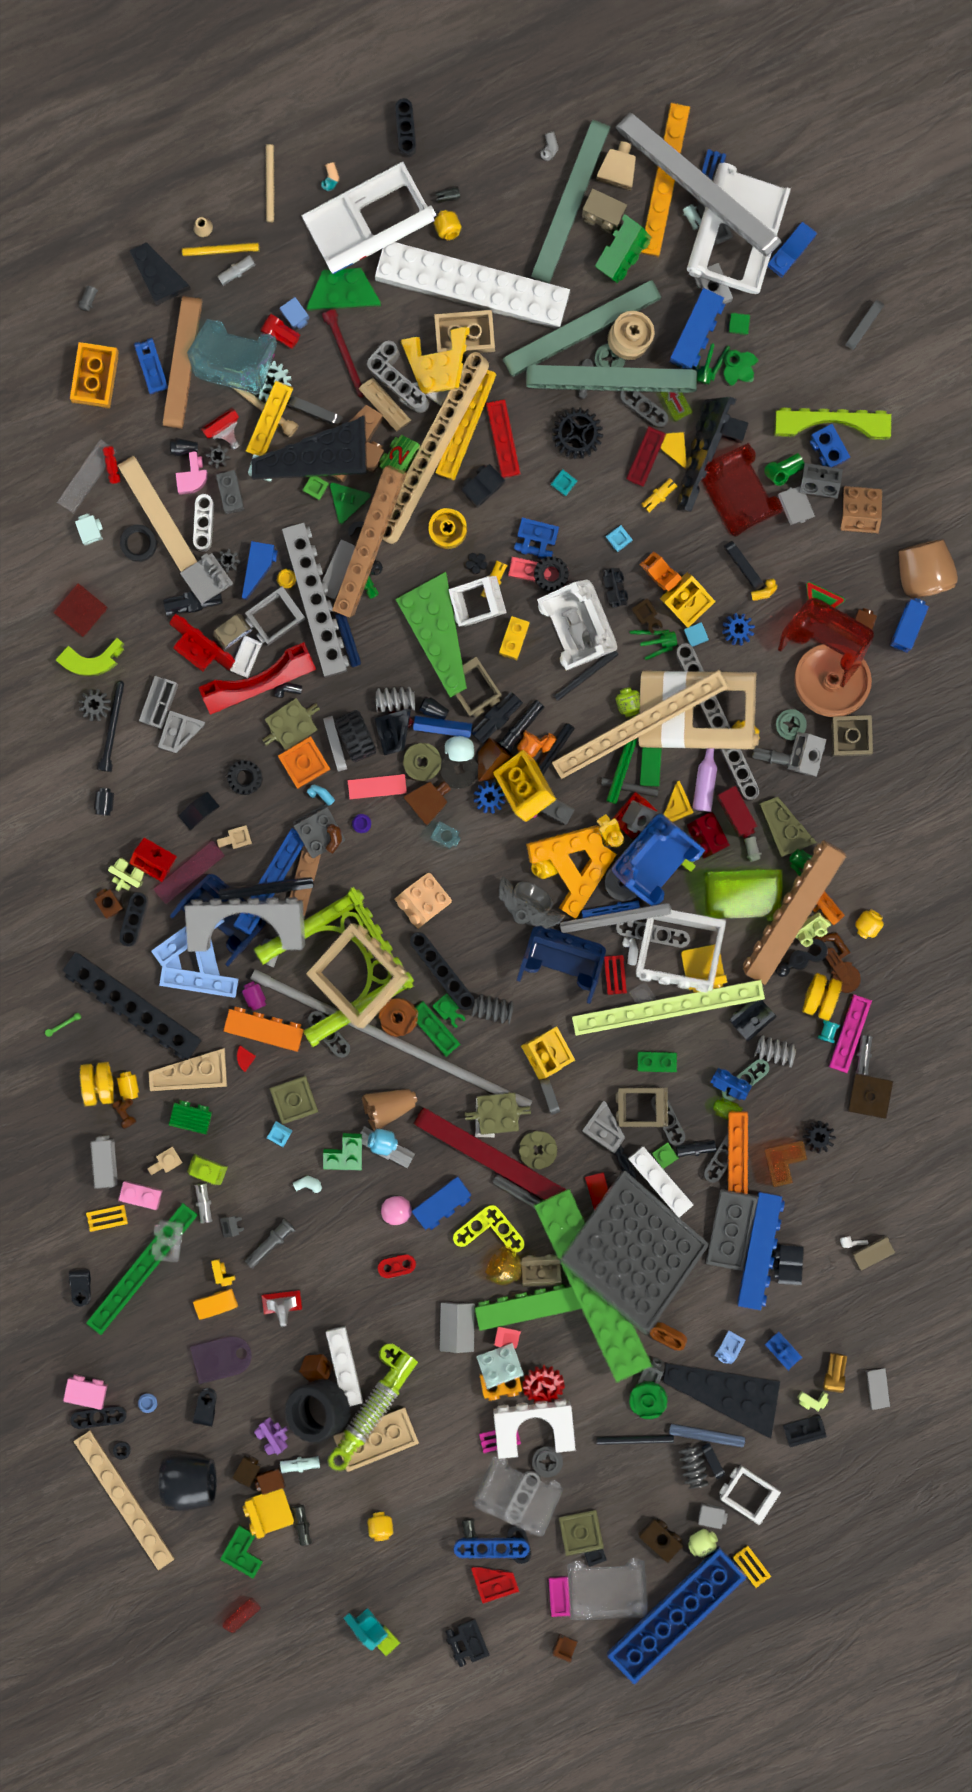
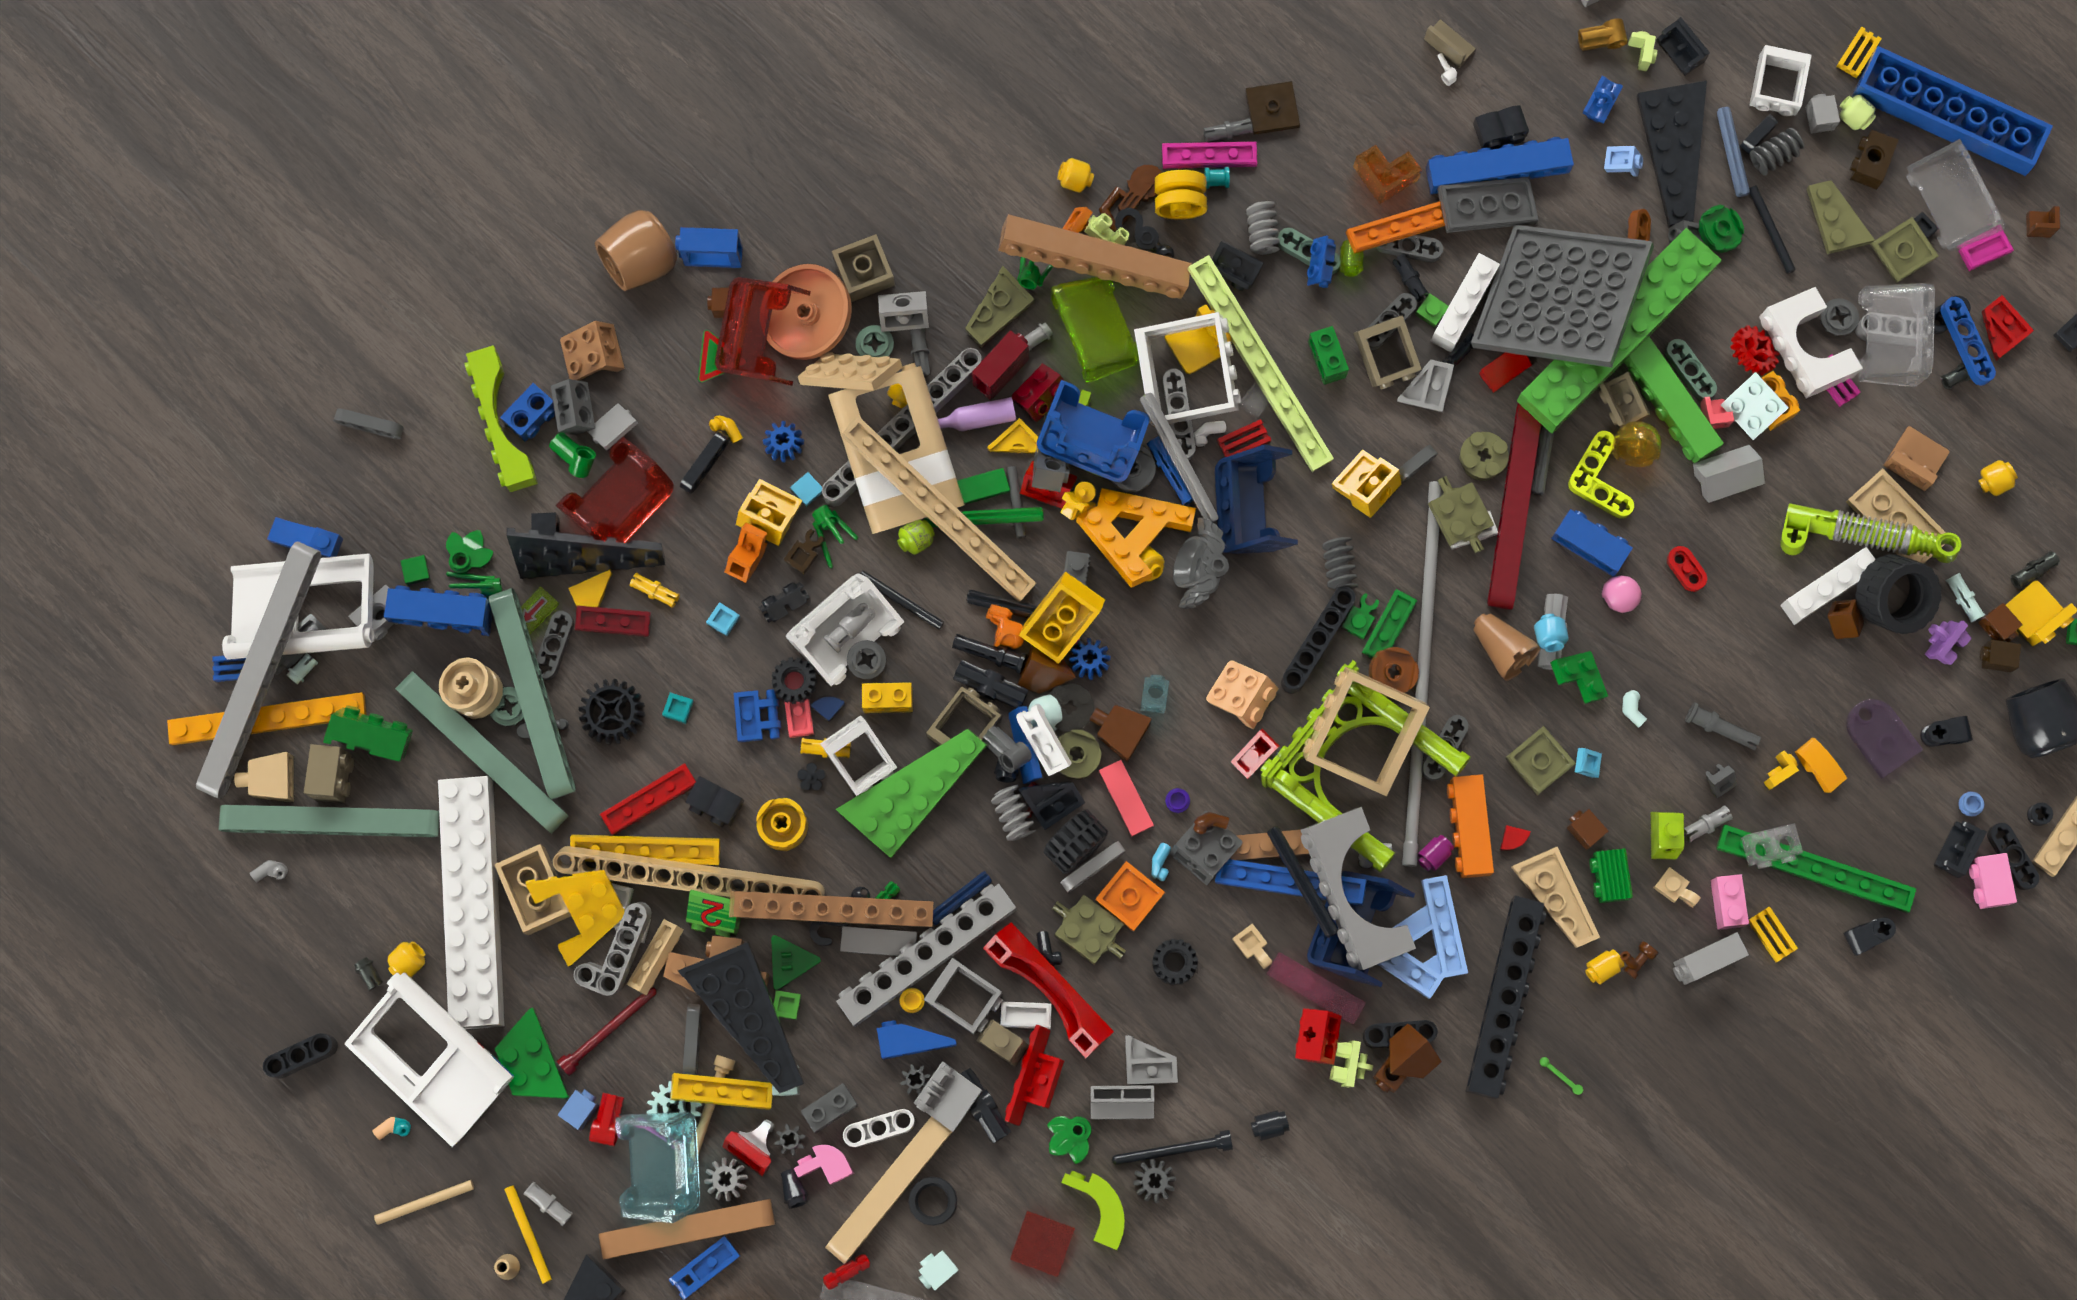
camera: 110 degrees left, 10 degrees down
(98, 1083) = (1618, 1002): yellow wheel -> none
(114, 919) = (1411, 1054): none -> reddish brown slope
(118, 1380) = (1960, 848): none -> black hinge
(146, 654) = (1067, 1140): none -> green plate
(198, 810) = (1236, 1003): black slope -> none
(211, 396) = (717, 1178): none -> light grey gear
(232, 1113) = (1586, 828): none -> reddish brown brick
(281, 1304) = (1787, 686): piece -> none
(373, 891) = (1255, 754): none -> slope
(417, 1473) = (1916, 458): none -> medium nougat bracket
(438, 711) = (1010, 754): none -> dark grey piece
(438, 739) = (1043, 740): none -> white plate
(524, 592) = (828, 707): none -> dark blue tile
(541, 628) = (869, 648): none -> dark grey gear
(543, 1339) = (1674, 360): none -> sand green beam
(625, 1492) = (1836, 219): none -> olive wing
(769, 695) = (850, 371): none -> tan plate
(821, 1130) = (1342, 137): black gear -> none

